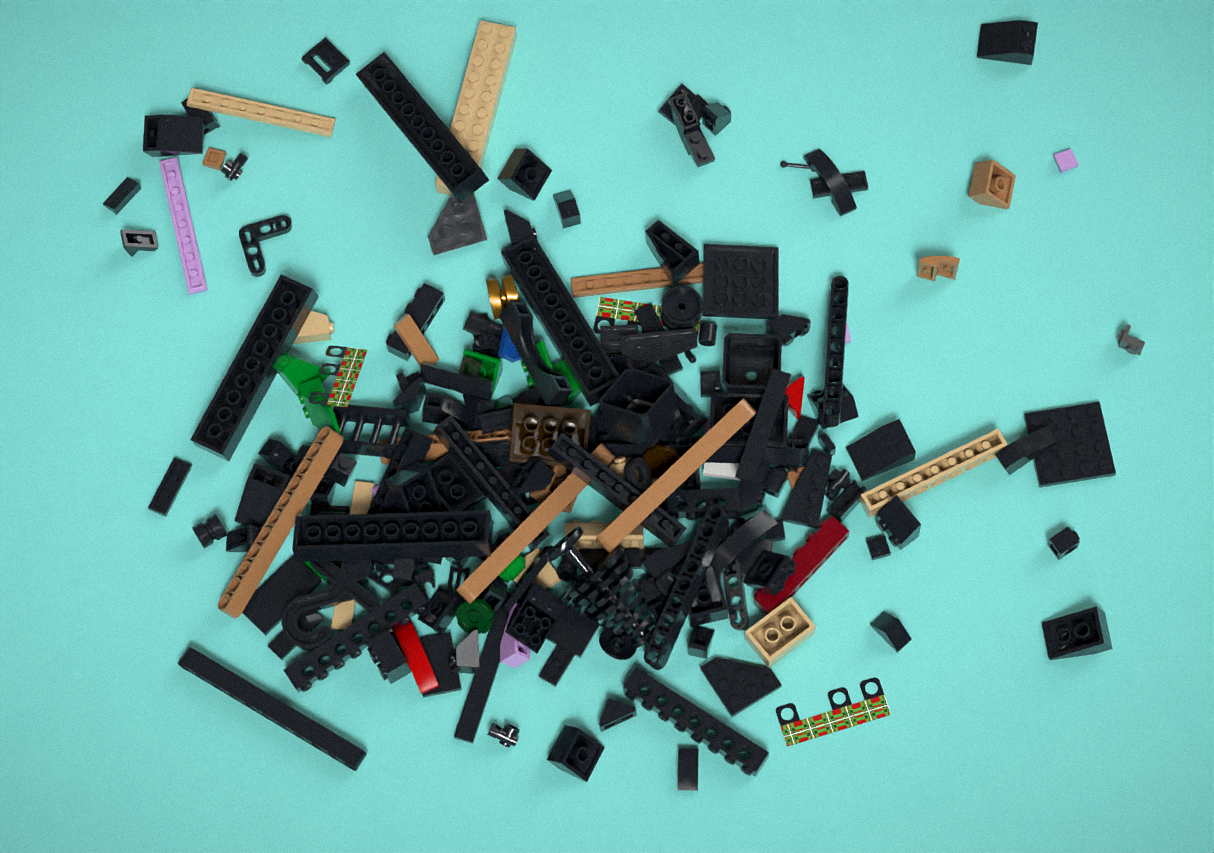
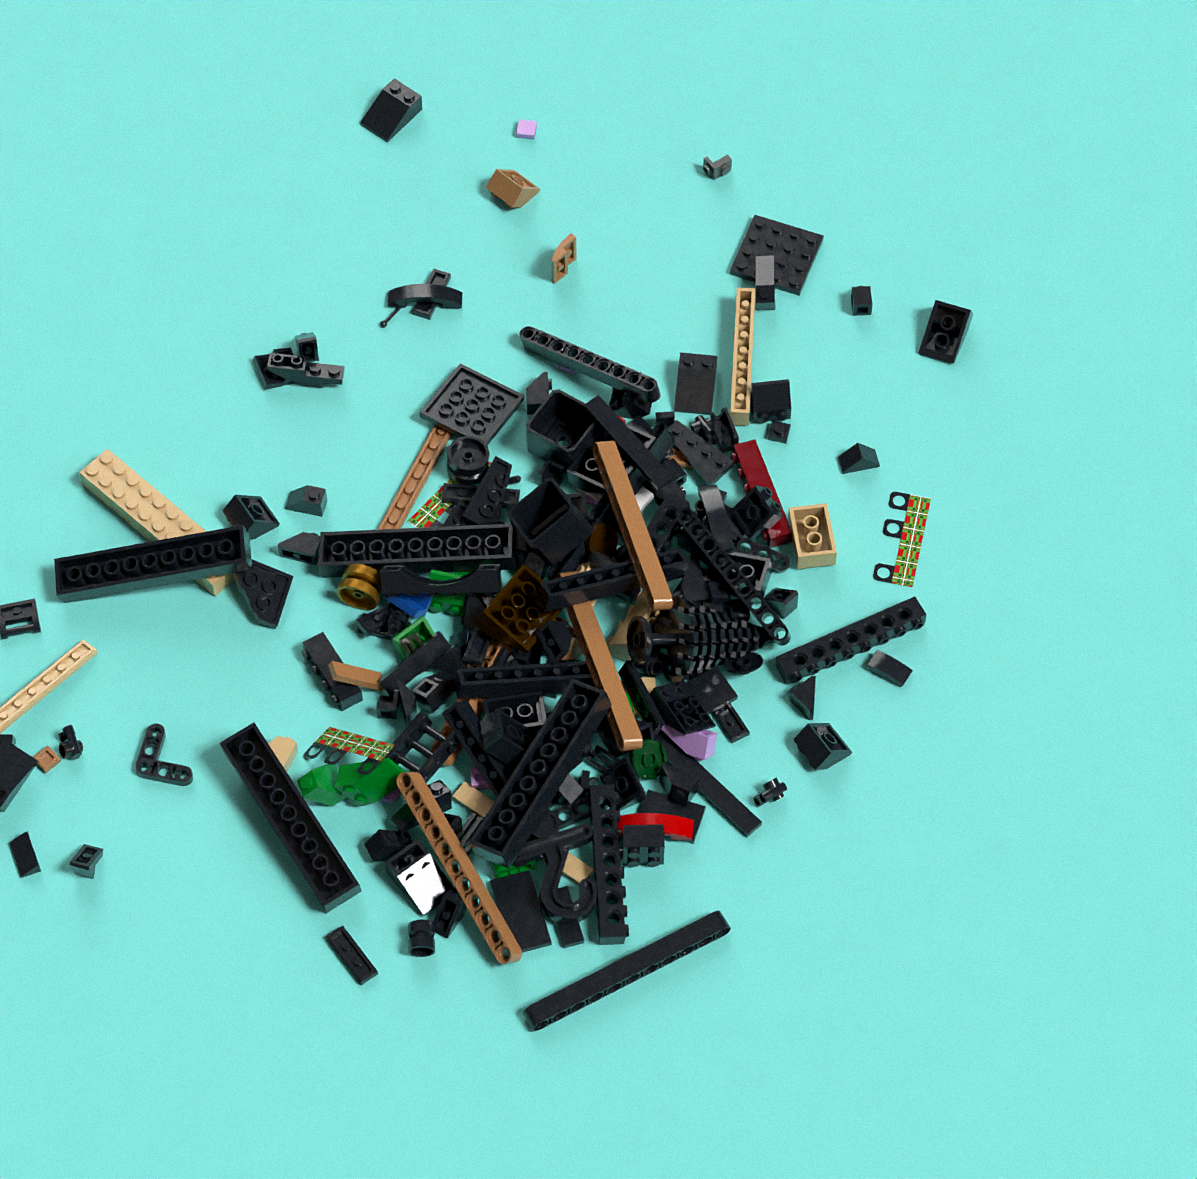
camera: 65 degrees left, 10 degrees down
(183, 226) = (95, 818): lavender tile -> none
(671, 251) = (409, 440): black wedge -> none
(707, 334) = (503, 453): black beam -> none
(739, 683) = (834, 593): black plate -> none

